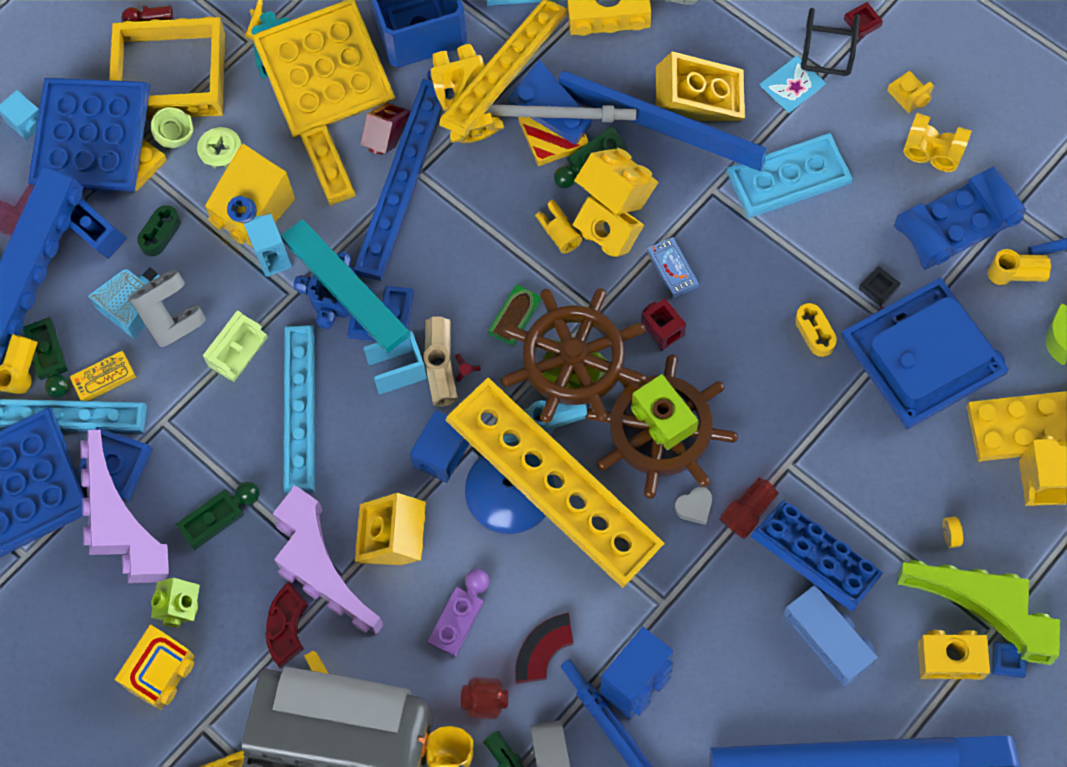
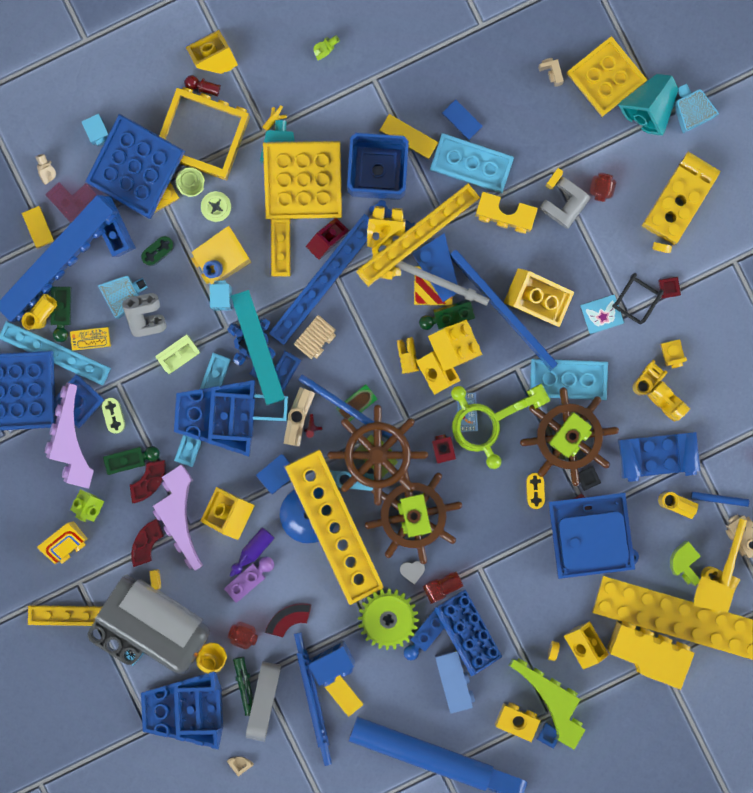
camera: 20 degrees right, 20 degrees up
(177, 462) = (117, 414): none -> yellowish green beam
(257, 538) = (149, 482): none -> dark red tile
(323, 397) = (218, 415): none -> blue wedge
(420, 252) = (315, 337): none -> tan brick
(449, 568) = (252, 550): none -> dark purple wheel
(486, 319) = (338, 402): none -> blue bar
(675, 728) = (344, 696): none -> yellow tile
(707, 572) = (375, 625): none -> lime gear
(756, 201) = (536, 396): none -> lime piece
(756, 588) = (424, 636): none -> blue plate
(831, 221) = (570, 436): none -> reddish brown brick
(894, 129) = (650, 376): none -> yellow piece
(1012, 501) = (586, 645): none -> yellow brick

